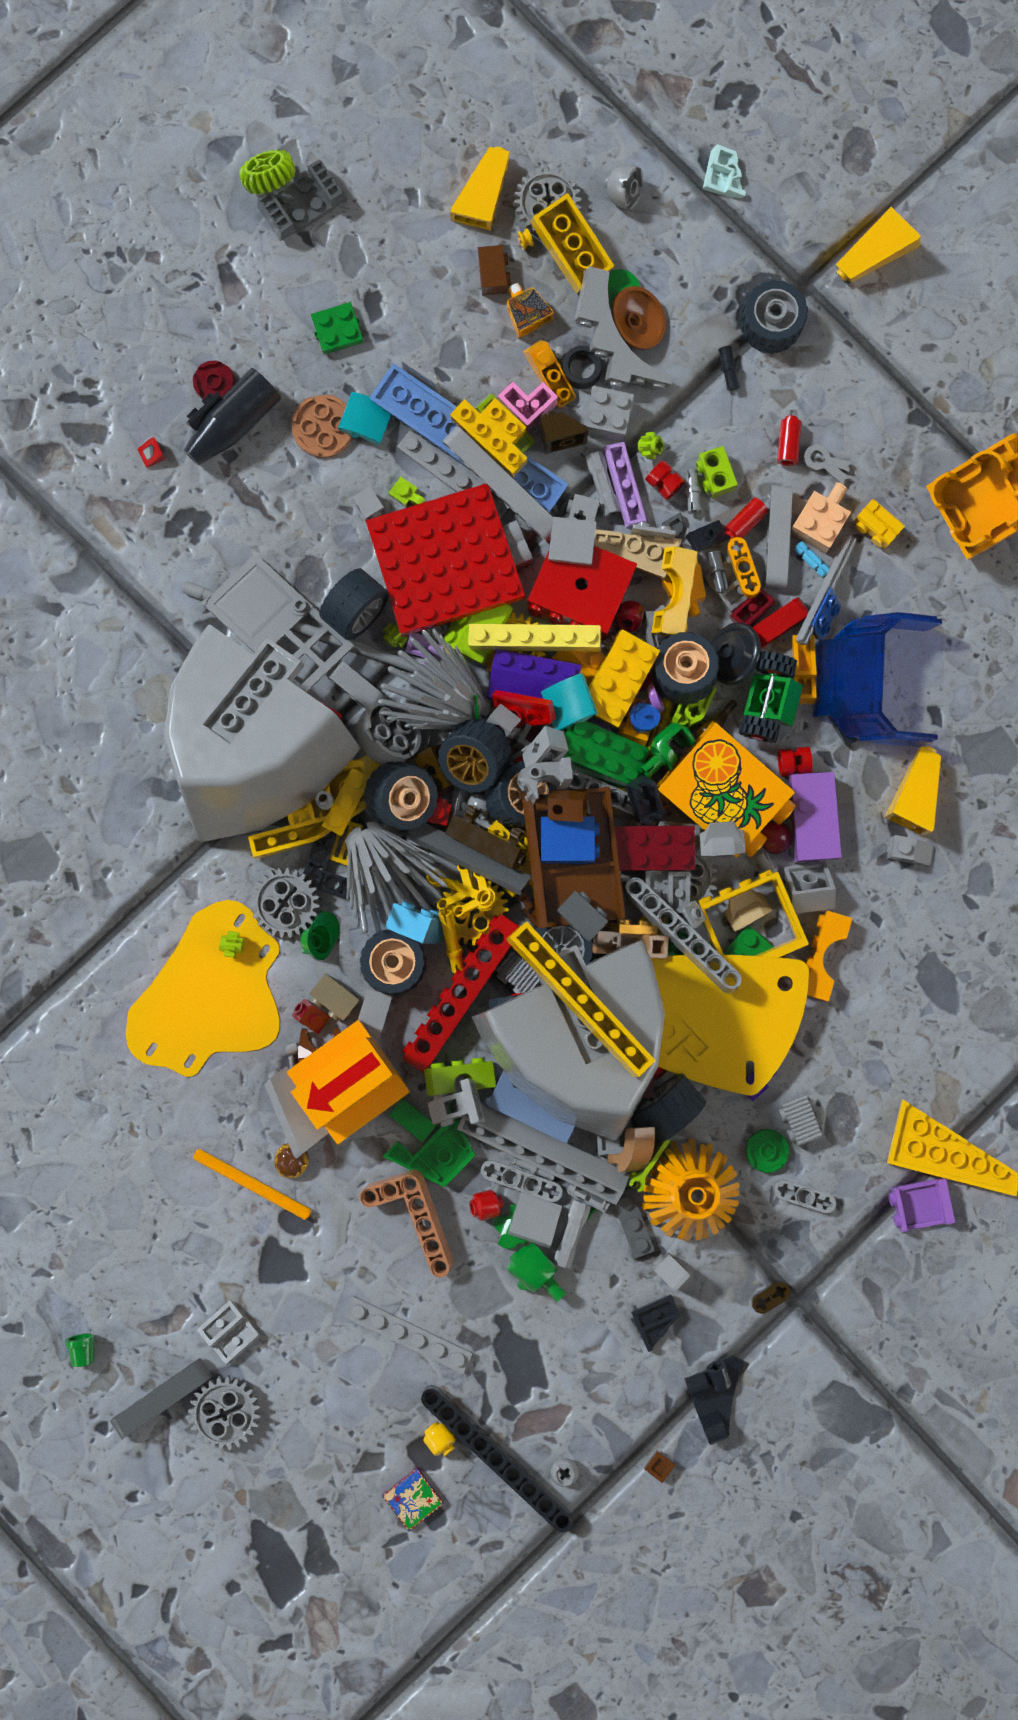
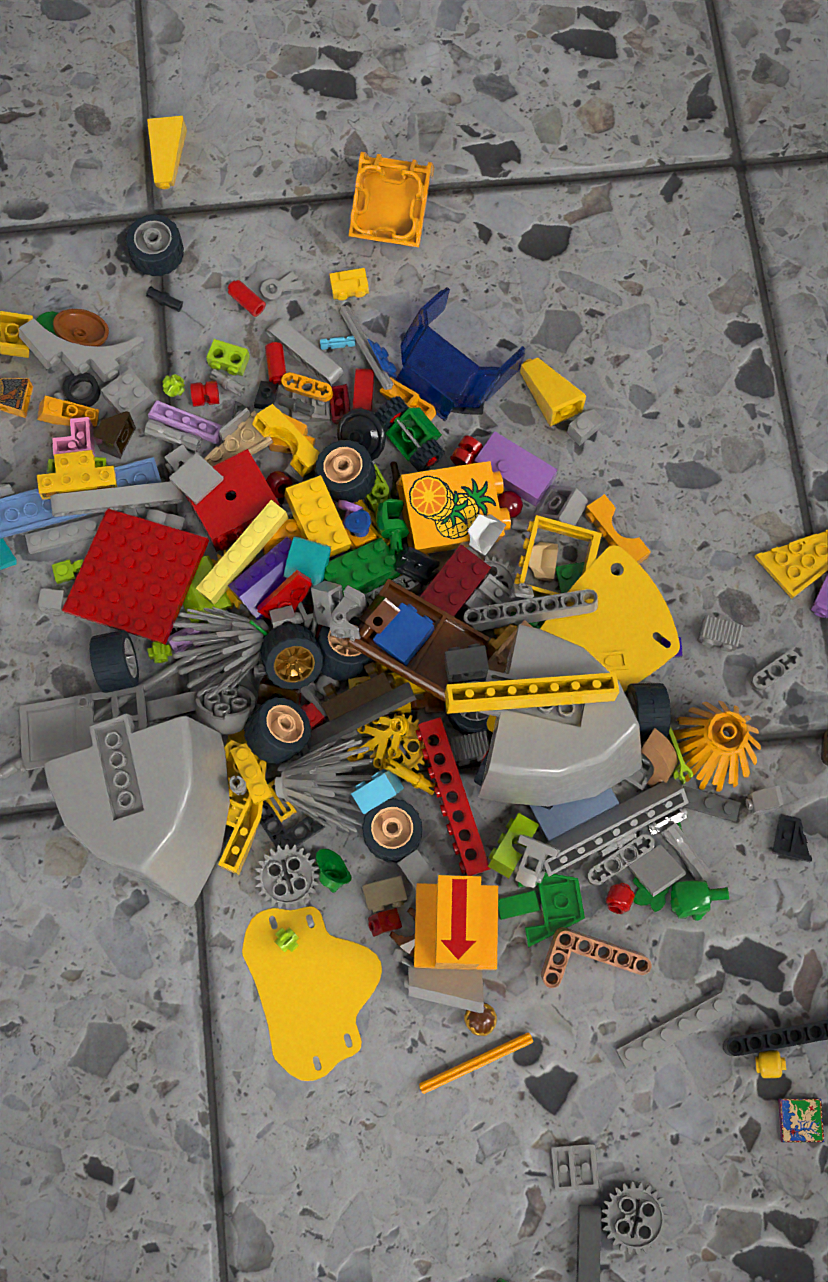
camera: 50 degrees left, 10 degrees down
(723, 173) = (32, 208): light aqua slope -> none
(767, 1150) = (724, 672): green tile -> none
(821, 519) = (316, 315): light nougat brick -> none

